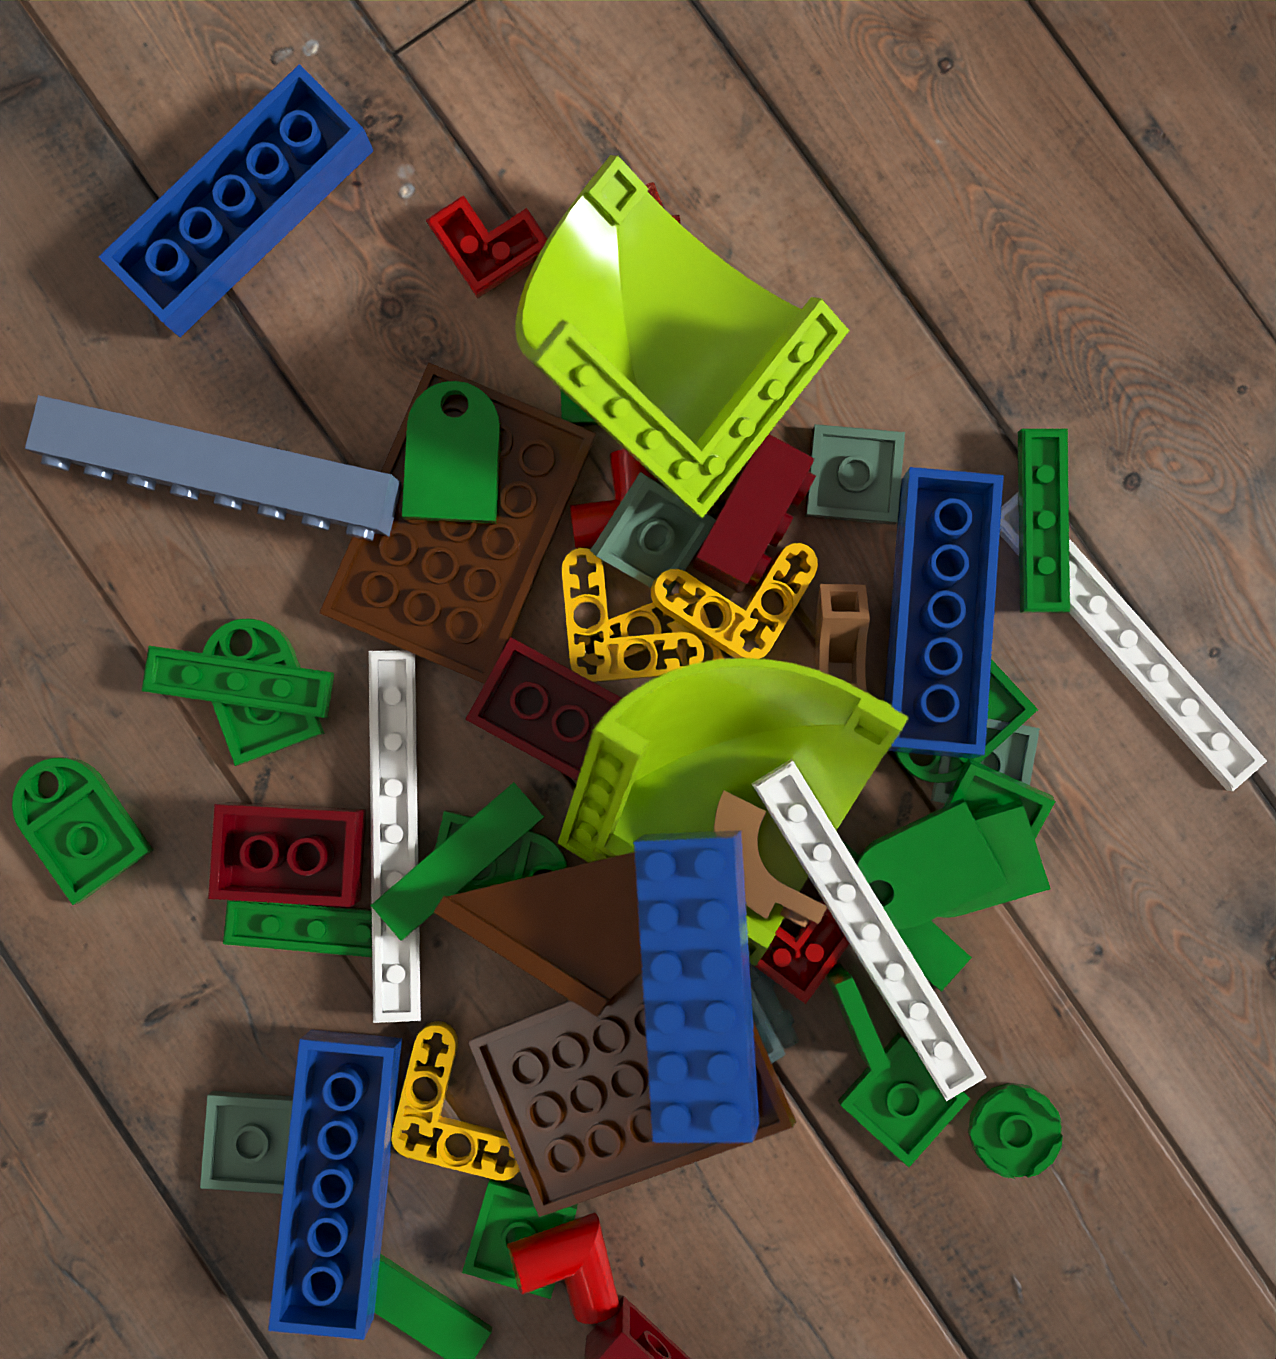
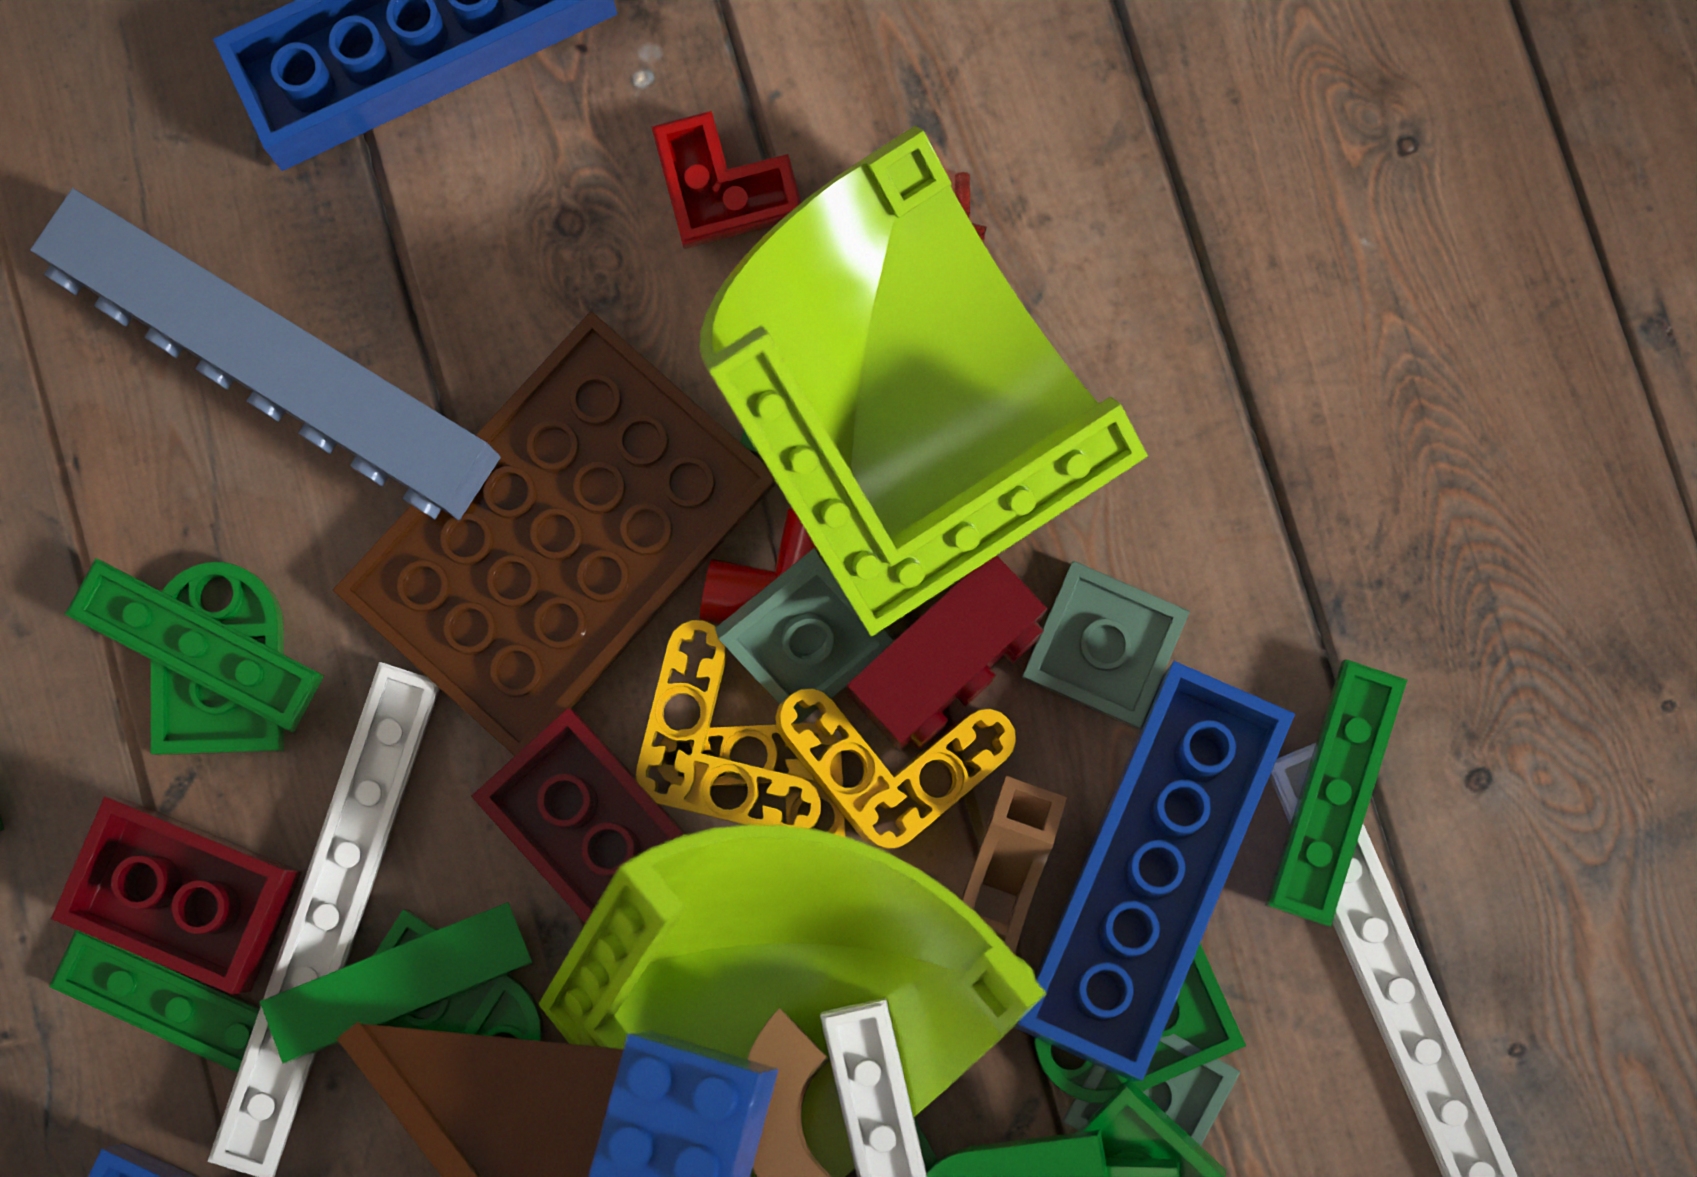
camera: 25 degrees right, 5 degrees down
(452, 460) = (577, 449): green tile -> none

